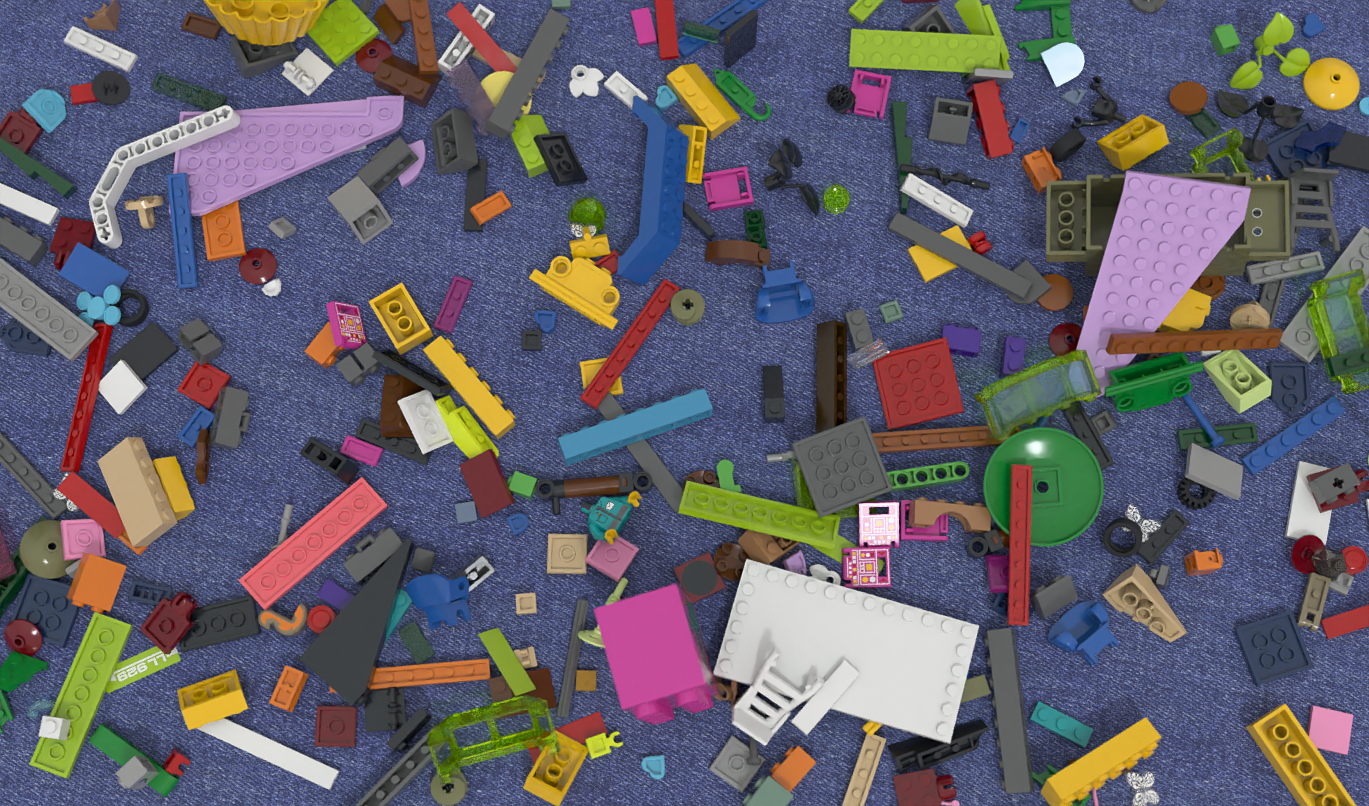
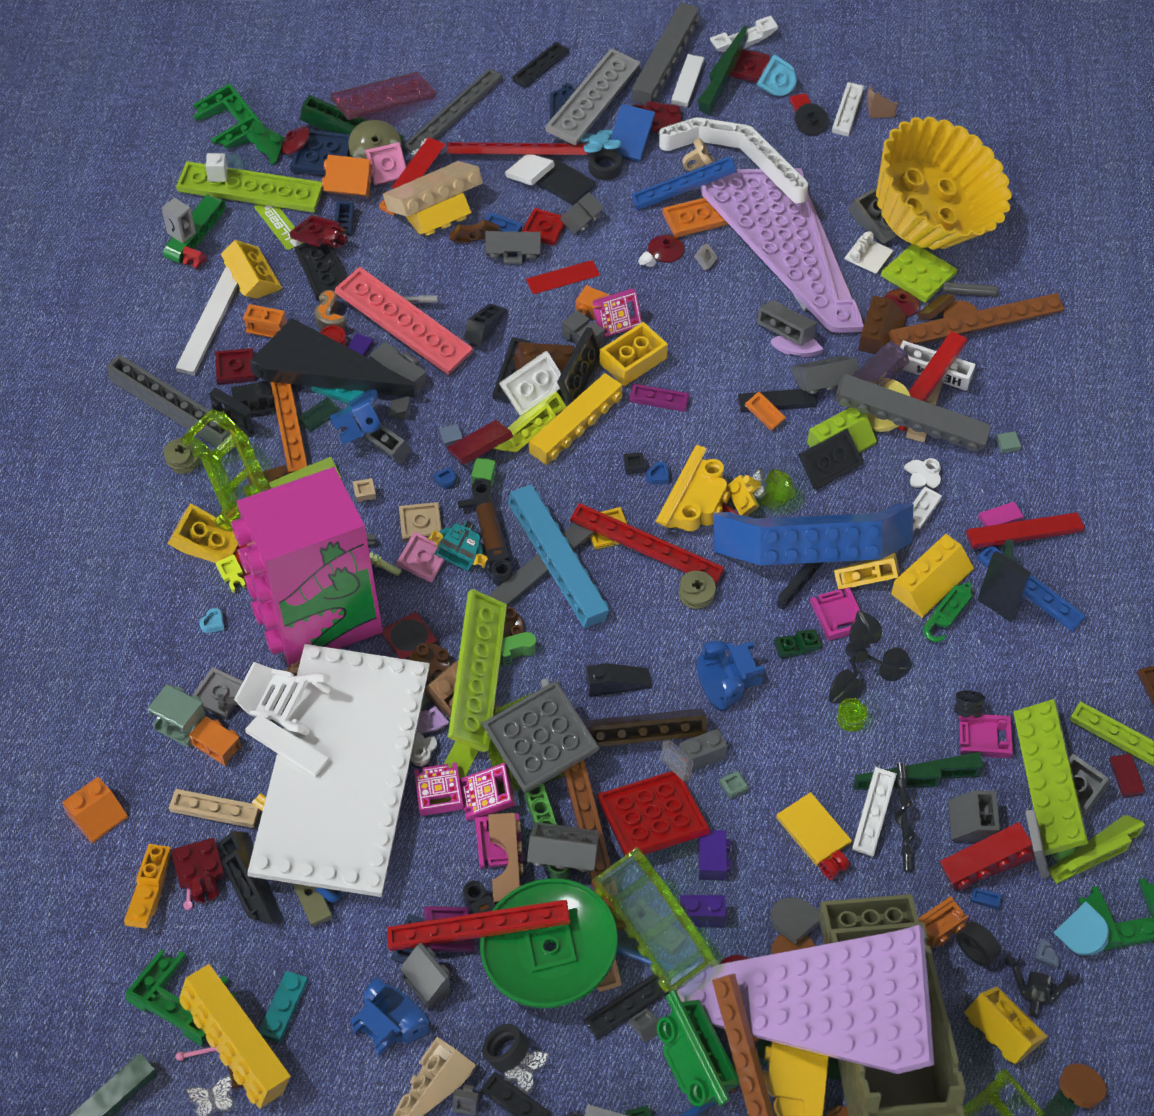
camera: 80 degrees right, 20 degrees down
(187, 92) = (822, 174): tile -> none
(276, 375) = (562, 277): none -> red sticker
(360, 210) = (735, 309): light grey slope -> none
(361, 451) = (498, 347): dark pink tile -> none
(665, 97) = (922, 544): medium azure tile -> none
(737, 251) = (765, 628): reddish brown arch -> none
(949, 462) = (563, 846): none -> dark grey slope
(960, 256) = (812, 844): dark grey tile -> none
(1010, 711) = (294, 944): dark grey brick -> none

